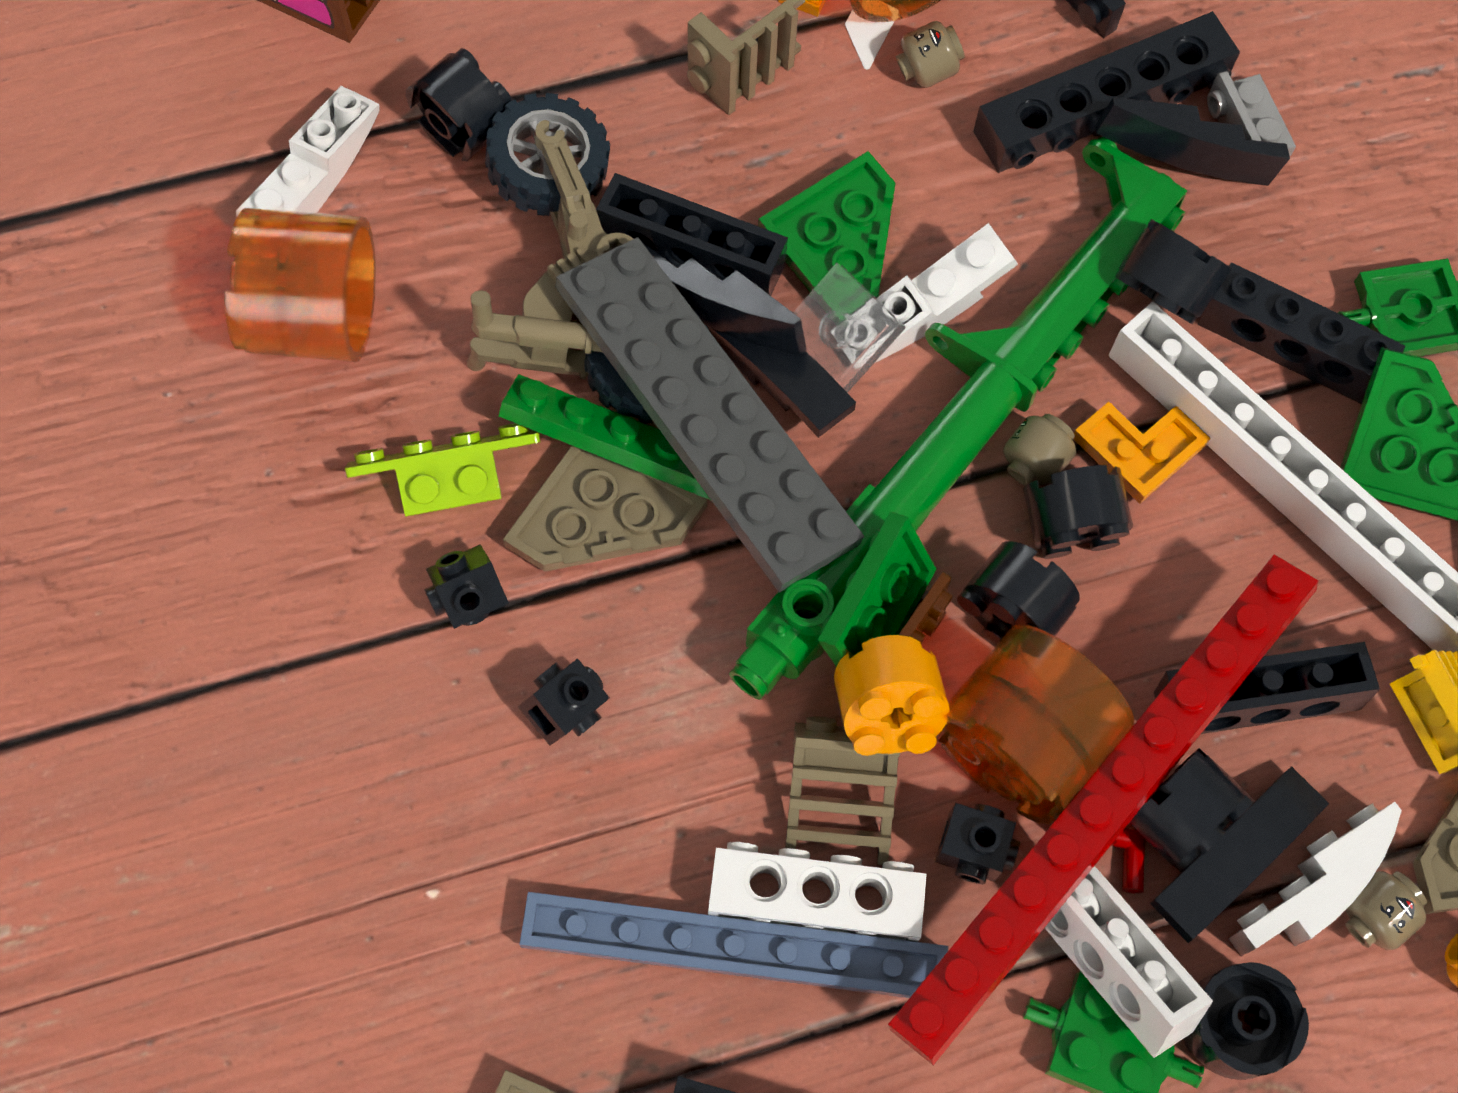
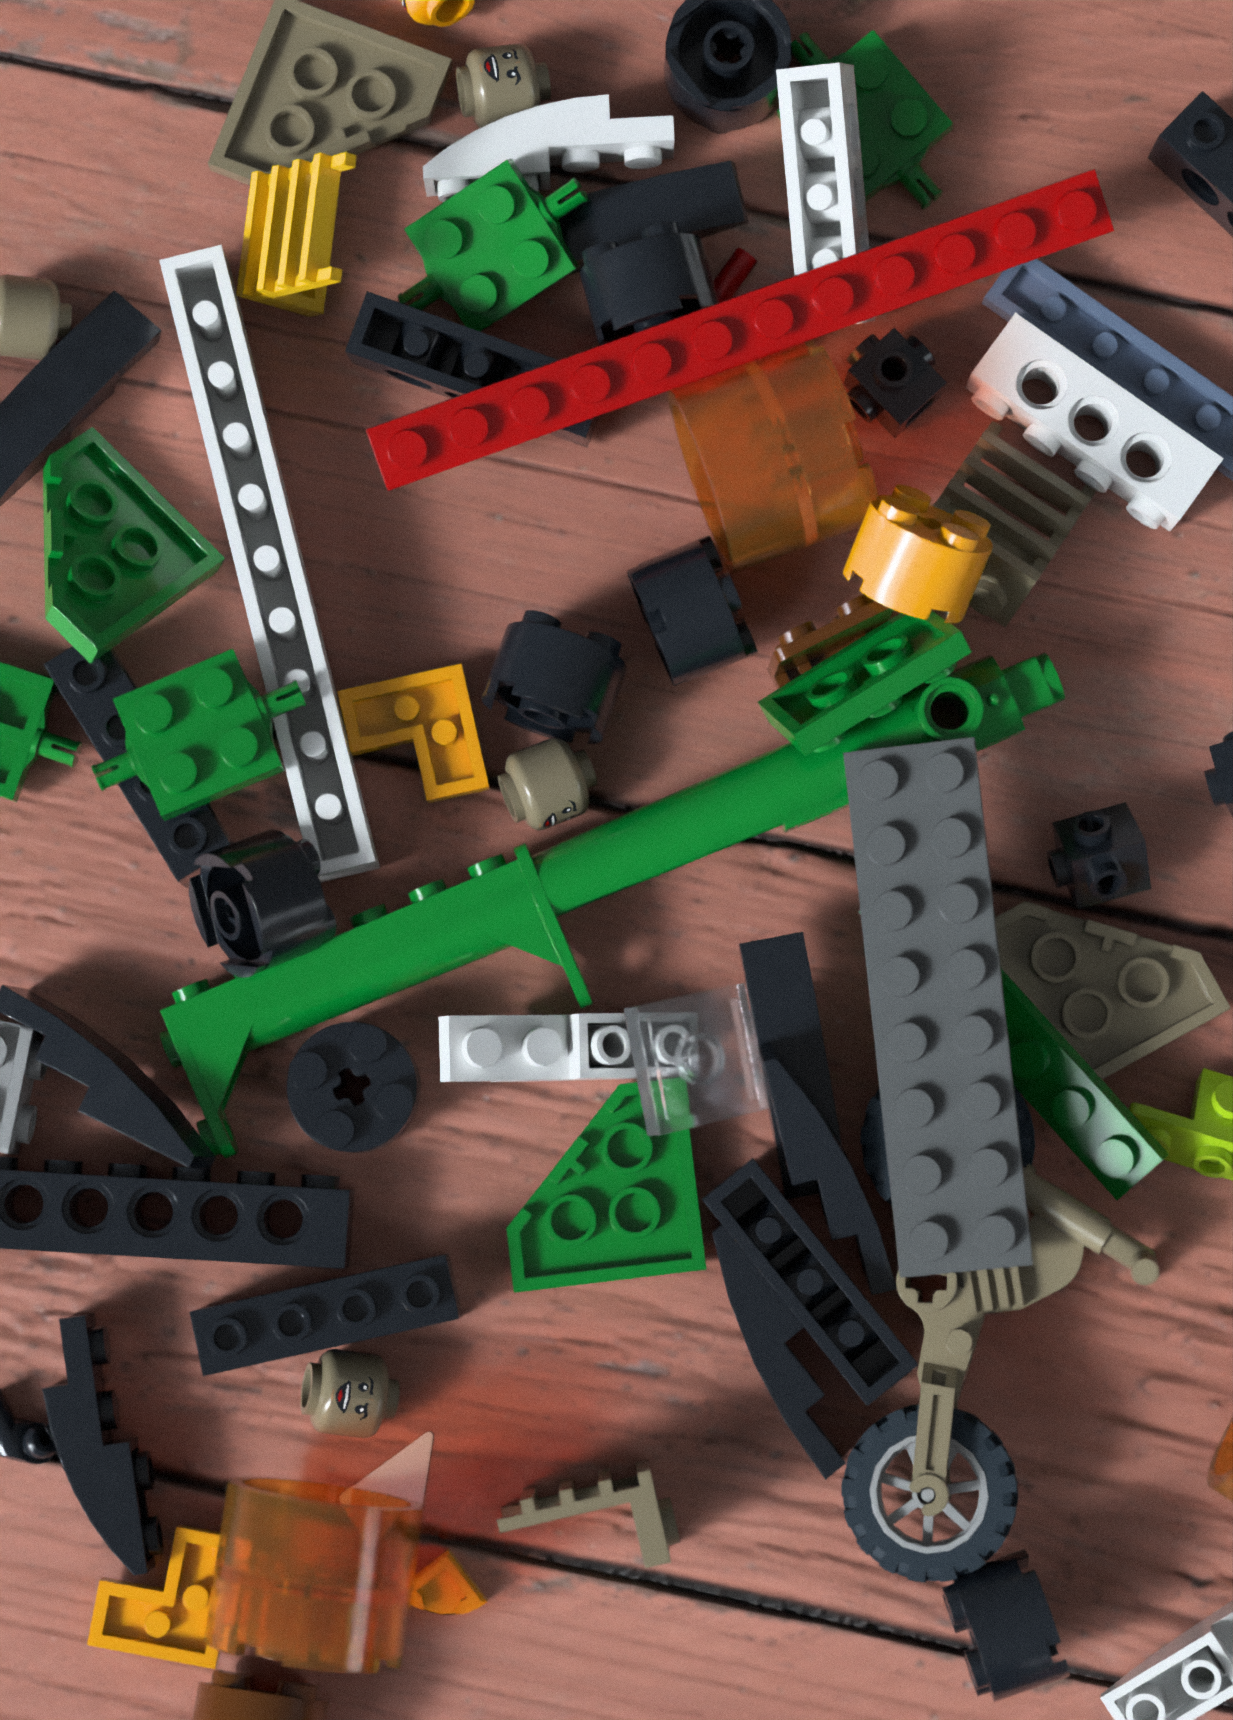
camera: 150 degrees left, 15 degrees up
(646, 590) = (1099, 856): none -> black brick
(665, 173) = (765, 1328): none -> black slope
(952, 98) = (325, 1314): none -> black brick
(1041, 211) = (319, 1073): none -> black brick
(1283, 342) = (198, 734): none -> green plate
(1314, 783) = (492, 246): none -> green plate

